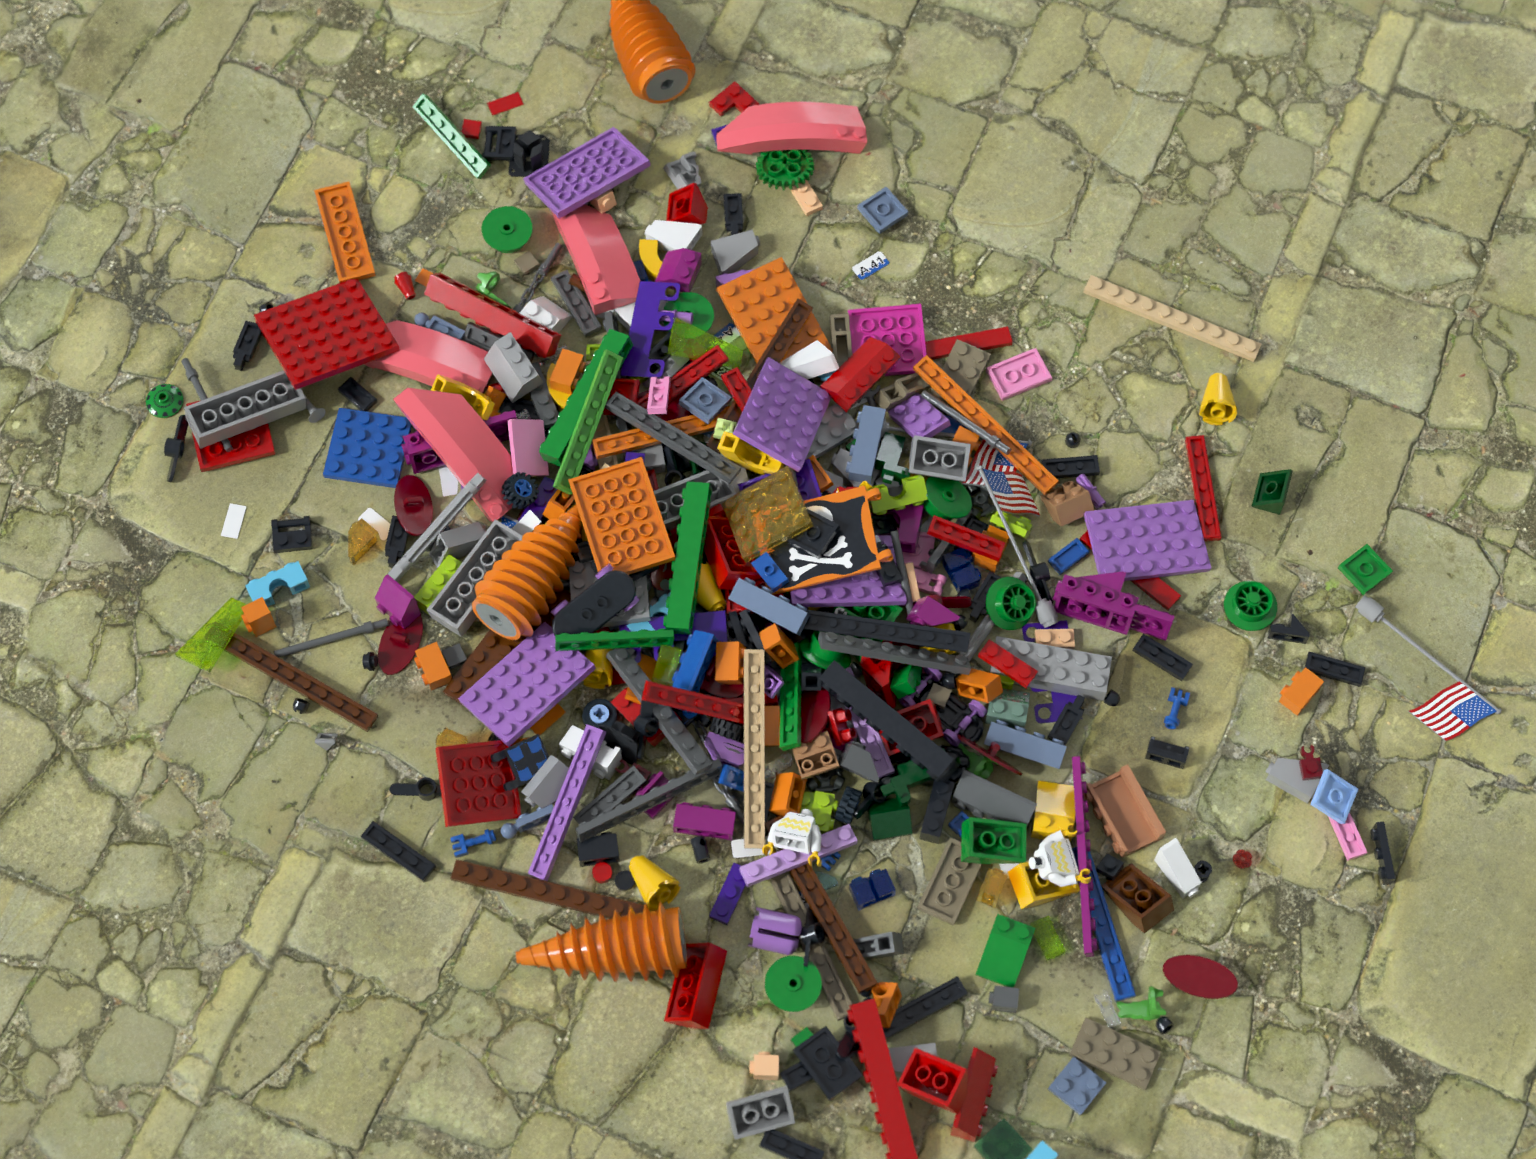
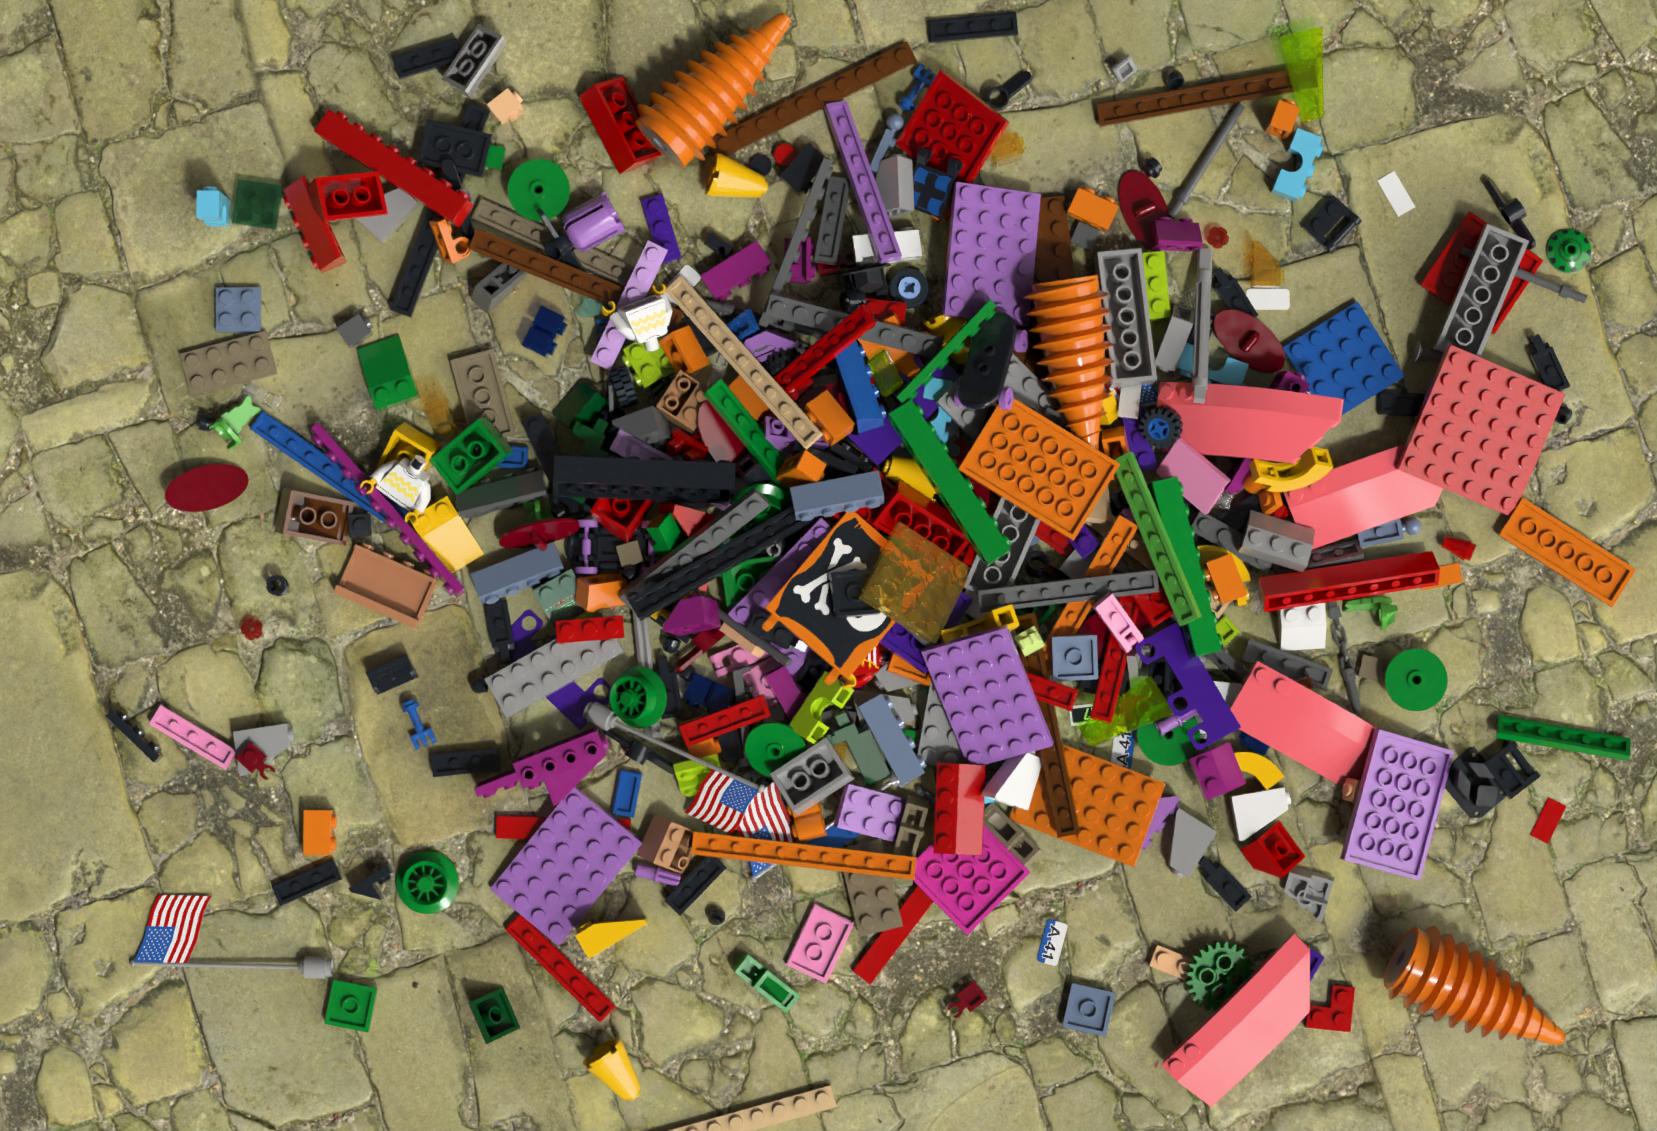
camera: 140 degrees right, 20 degrees up
(370, 580) = (1222, 233): none -> clear red plate
(442, 494) = (1230, 374): none -> medium azure arch
(471, 128) = (1553, 763): red tile -> none
(770, 572) = (865, 529): blue plate -> none
(951, 271) = (969, 997): none -> dark red plate
(993, 441) = (779, 840): bar -> none
(1047, 938) = (363, 417): clear neon green tile -> none
(1055, 637) = (575, 700): light nougat plate -> none
(1074, 378) = (765, 981): none -> green slope
(1152, 476) = (603, 934): none -> yellow slope
(1178, 869) = (297, 568): white slope -> none
(1334, 796) = (212, 747): light blue tile -> none

